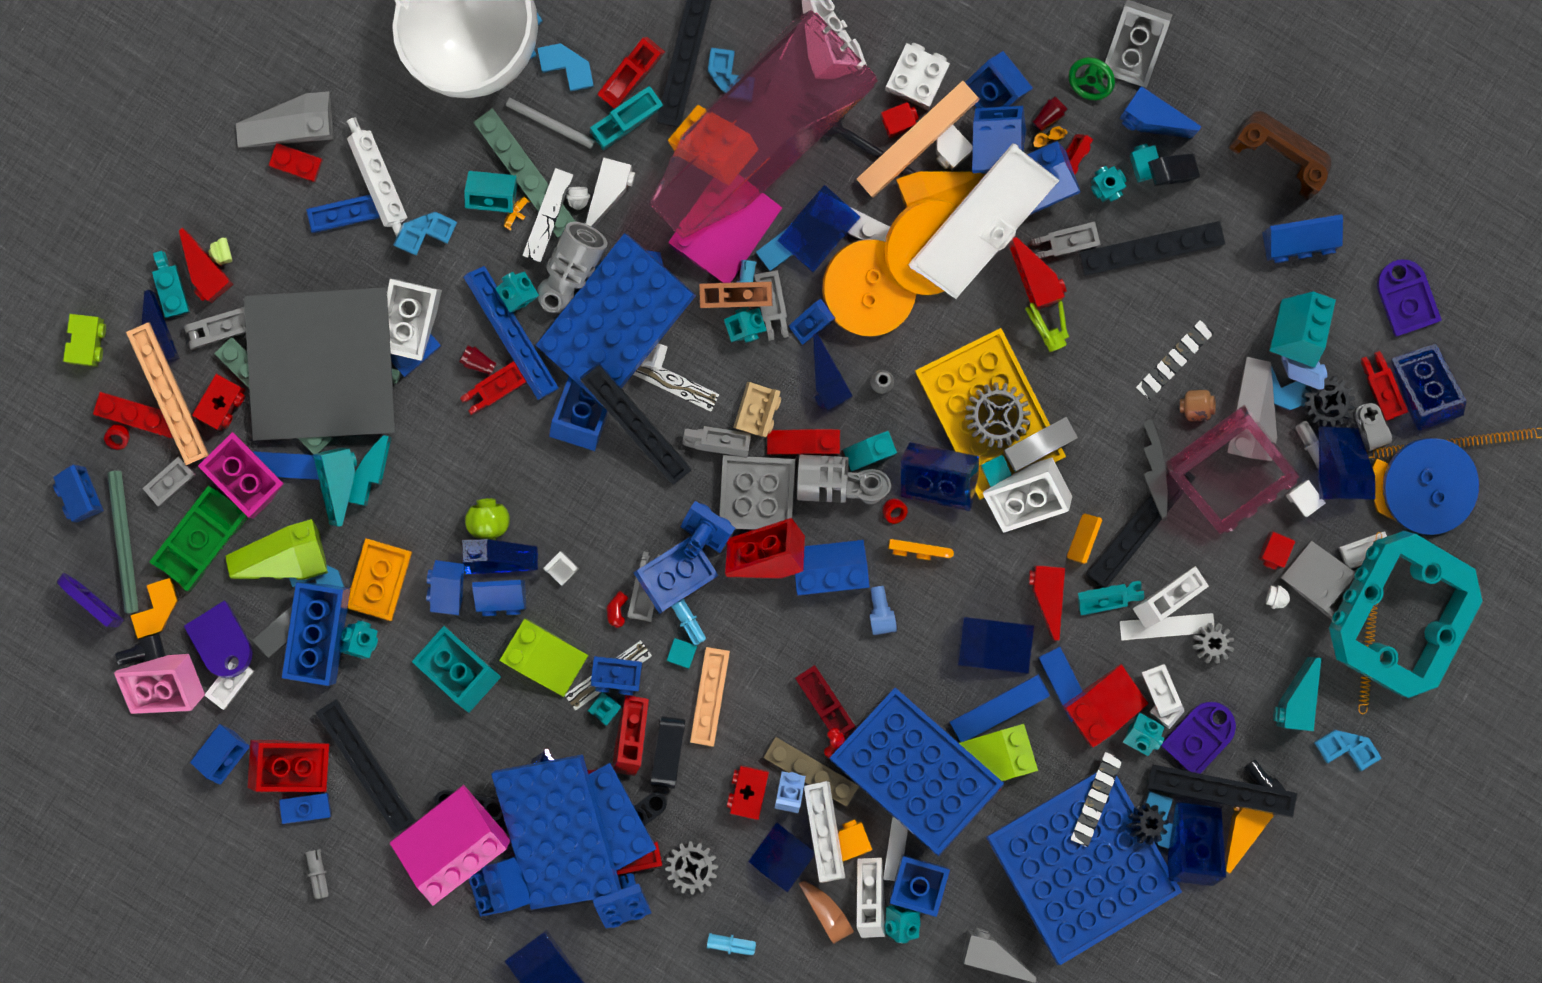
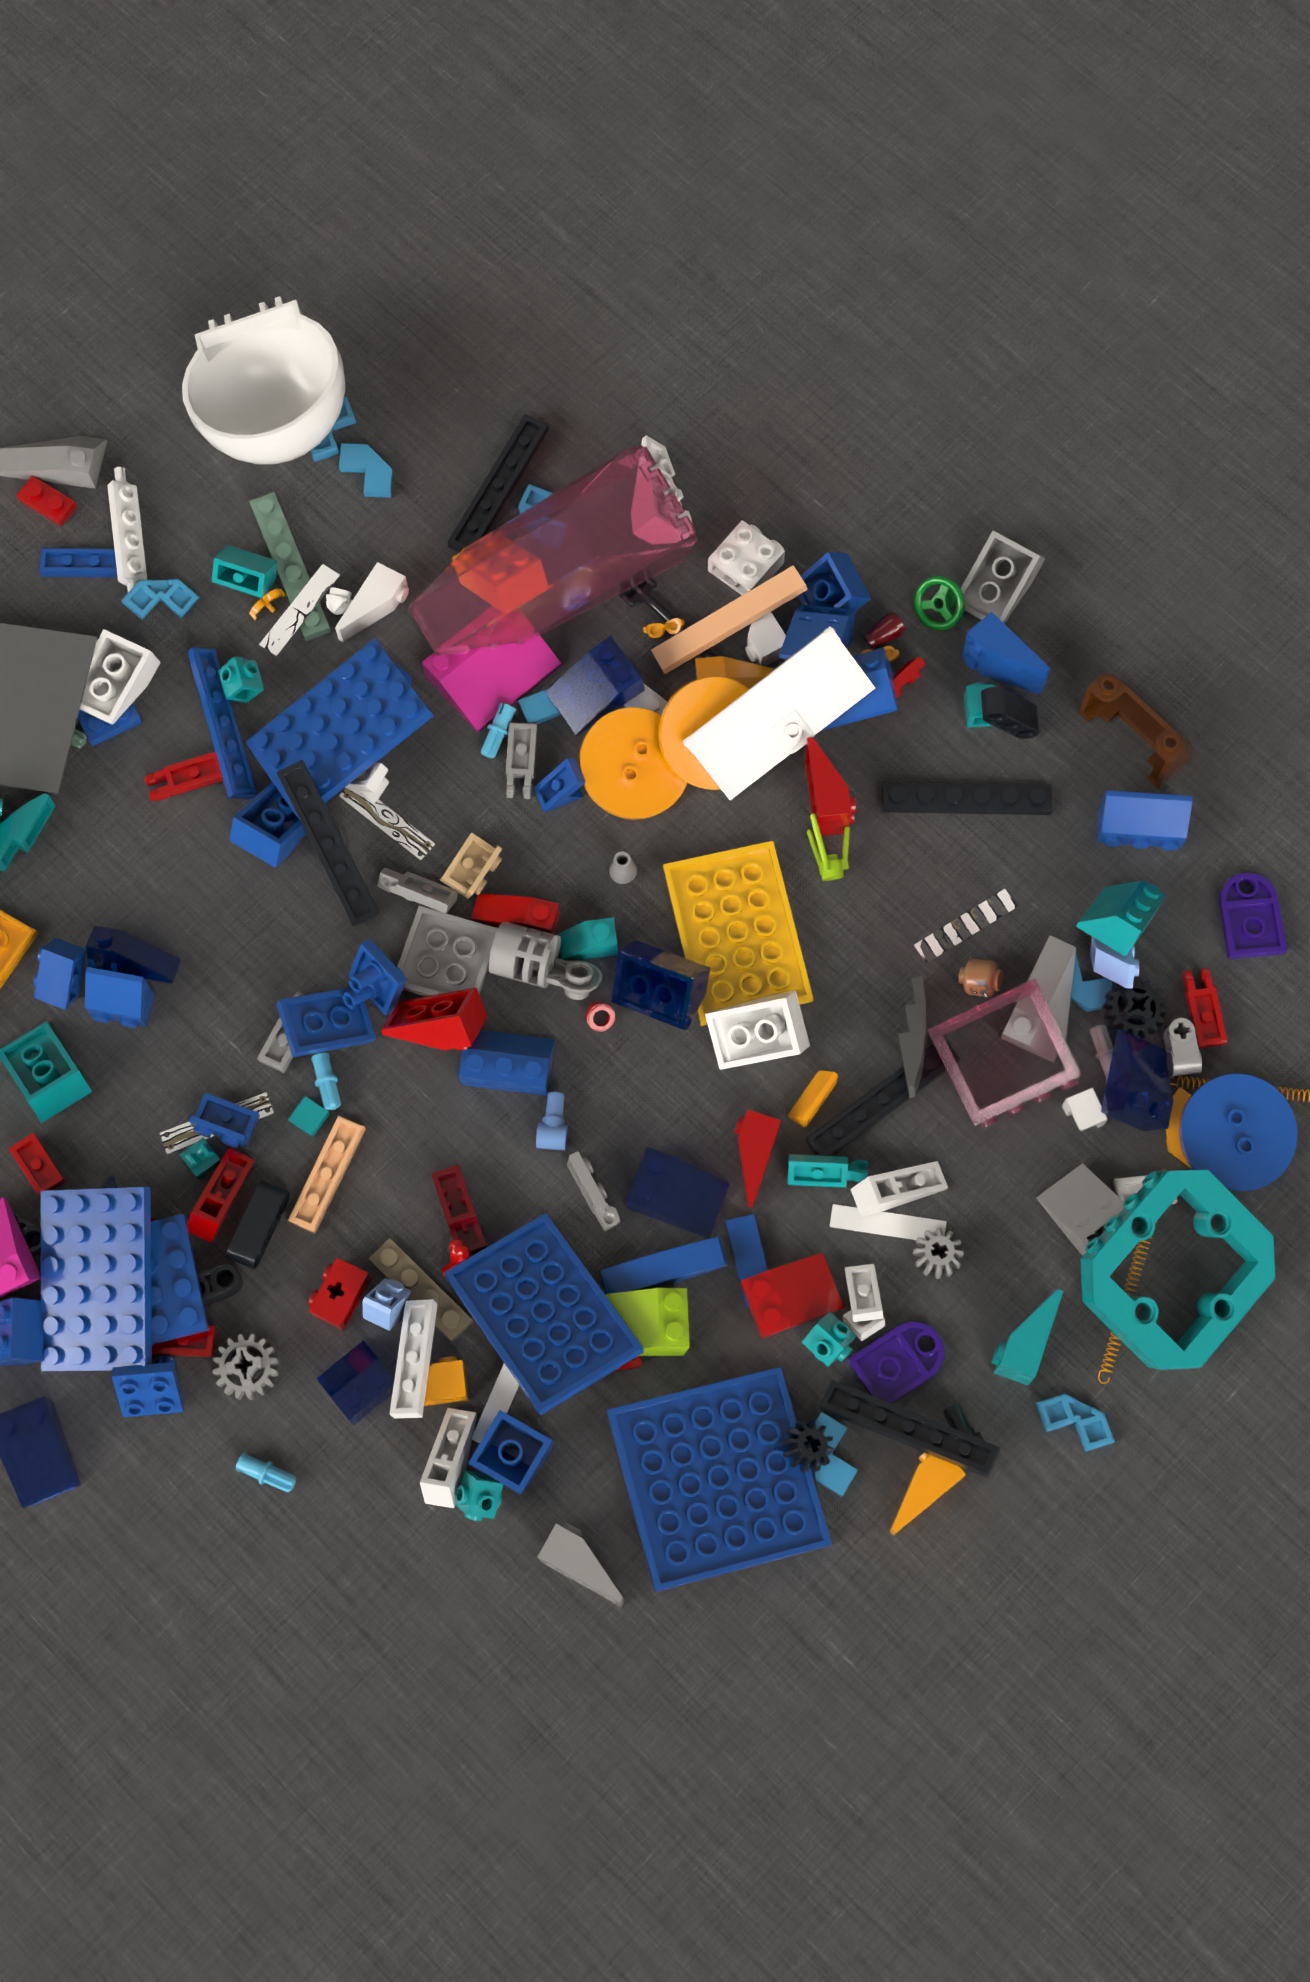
camera: 15 degrees right, 15 degrees down
(475, 747) = (36, 1164): none -> red plate
(477, 360) = (174, 742): dark red cone -> none
(487, 519) = (132, 913): lime plant -> none
(543, 657) = (147, 1081): lime slope -> none
(551, 123) = (333, 522): light grey bar -> none
(561, 568) = (198, 986): white panel -> none
(570, 265) = (307, 661): light grey cylinder -> none
(614, 612) = (245, 1047): red arm -> none
(625, 118) = (414, 532): teal slope -> none
(631, 72) = (434, 489): red slope -> none
(735, 294) = (479, 733): nougat slope -> none
(745, 325) = (483, 771): teal brick -> none
(828, 912) = (393, 1463): nougat piece -> none
(829, 383) = (561, 855): clear blue slope -> none
(856, 158) = (657, 630): none -> light orange piece
(899, 119) = (713, 596): red brick -> none
(922, 550) = (619, 1064): light orange hinge -> none
(927, 661) = (592, 1192): none -> light grey hinge
(990, 406) = (763, 918): light grey gear -> none
(996, 470) = (727, 991): teal slope -> none
(1040, 444) = (785, 974): light grey slope -> none
(1068, 240) = (873, 767): light grey hinge -> none
(1096, 799) = (752, 1403): sticker -> none
(1102, 190) = (932, 716): teal brick -> none
(1197, 845) = (862, 1490): clear blue slope -> none
(1276, 550) = (1037, 1163): red brick -> none
(1277, 597) = (1027, 1218): white plate -> none
(1428, 387) = (1257, 1021): clear blue slope -> none

